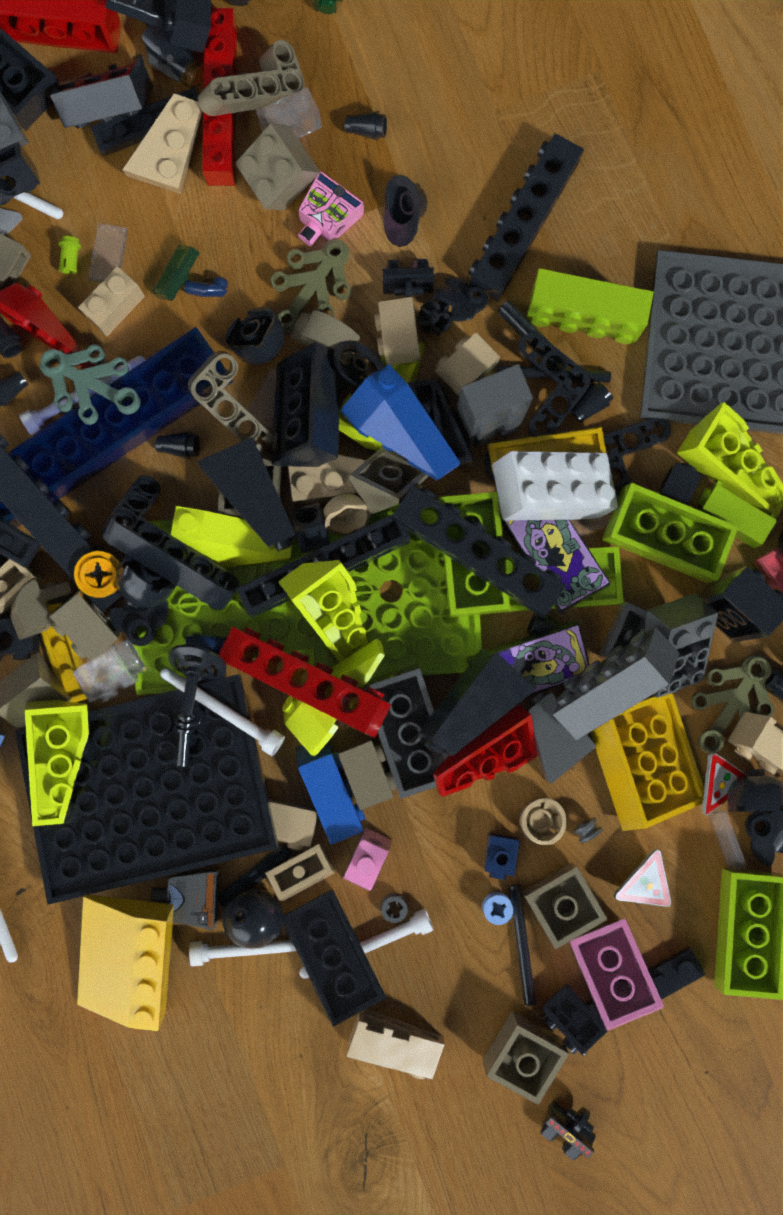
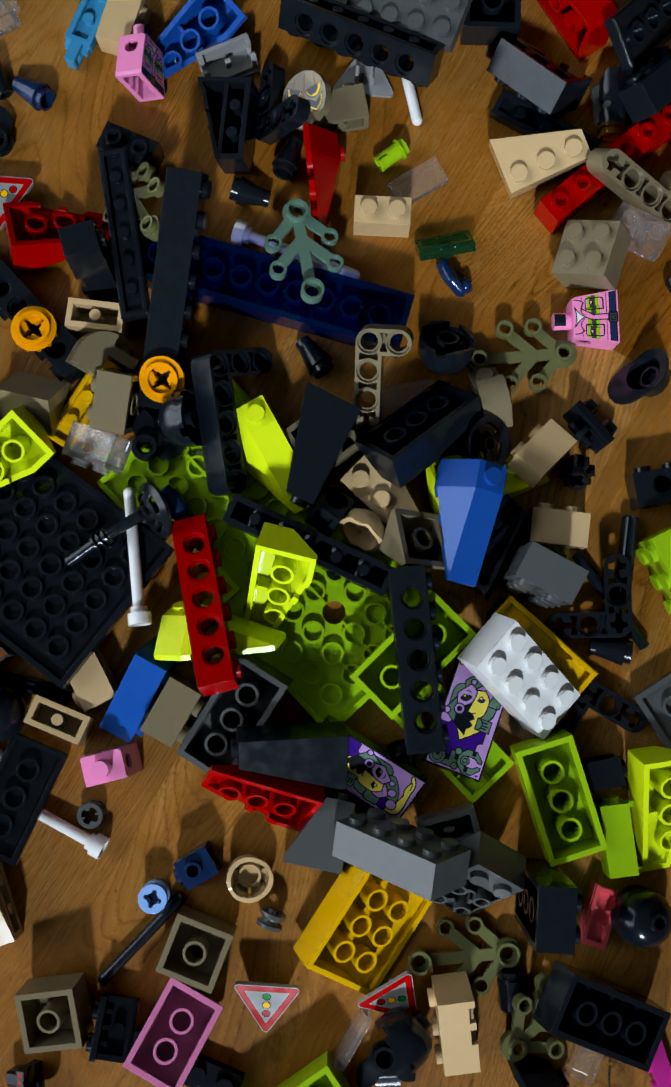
camera: 55 degrees right, 0 degrees up
(463, 298) = (609, 480): black plate -> none

